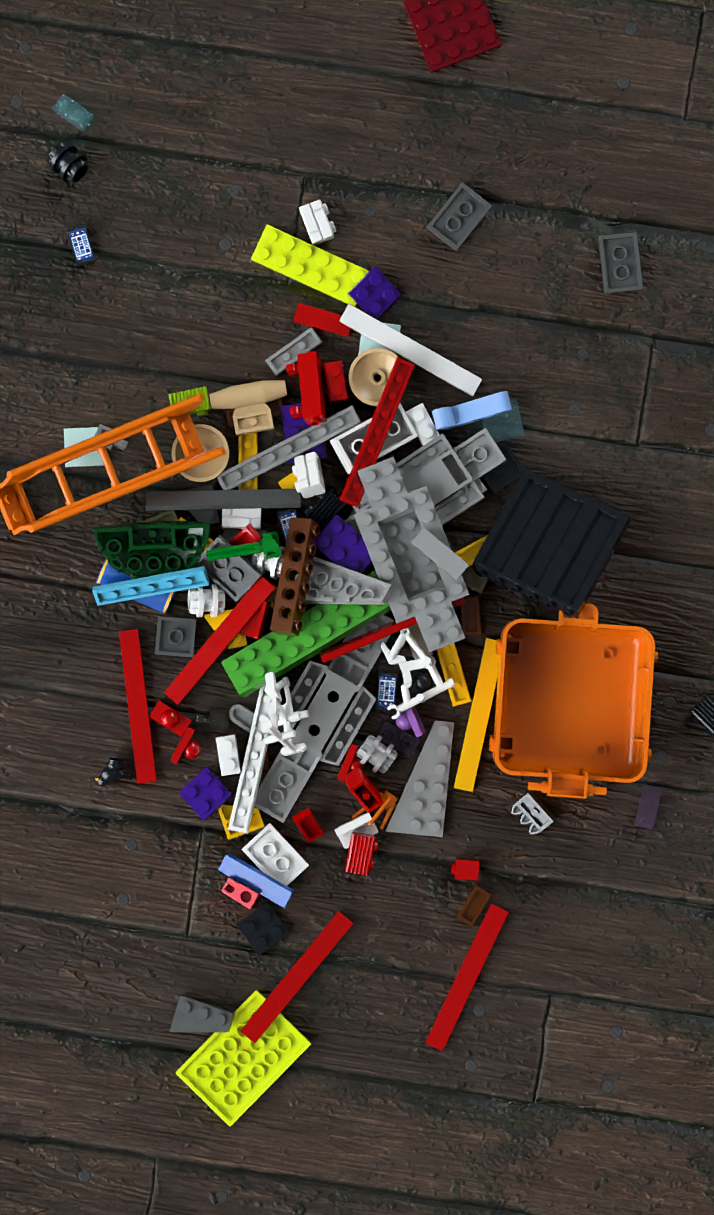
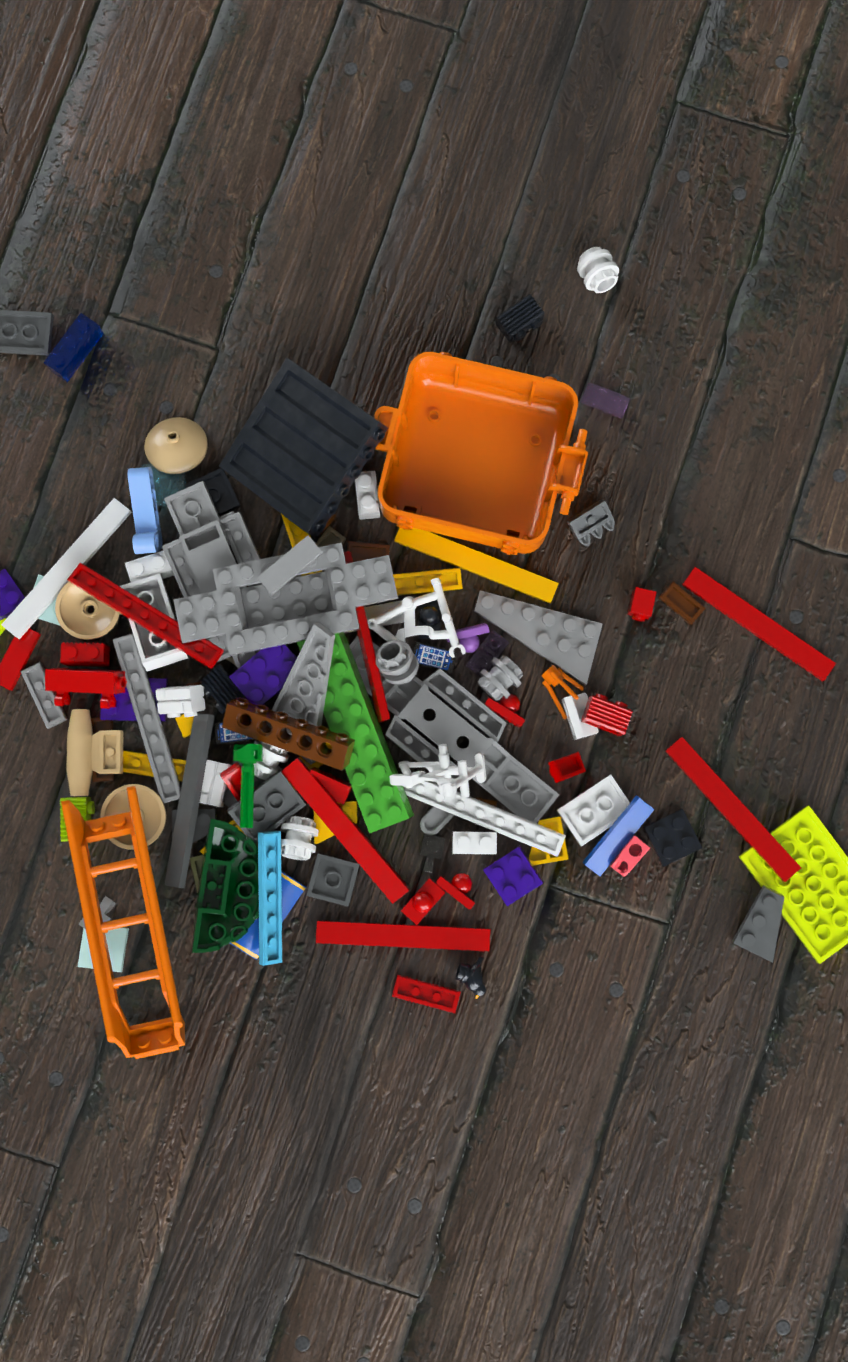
camera: 80 degrees left, 5 degrees down
(91, 734) = (426, 993): none -> red tile
(363, 790) = (537, 699): red brick -> none
(373, 660) = (397, 662): none -> light grey piece
(521, 607) = (367, 495): none -> white brick
(529, 430) = (176, 454): none -> tan dish
(613, 316) = (73, 347): none -> clear blue brick

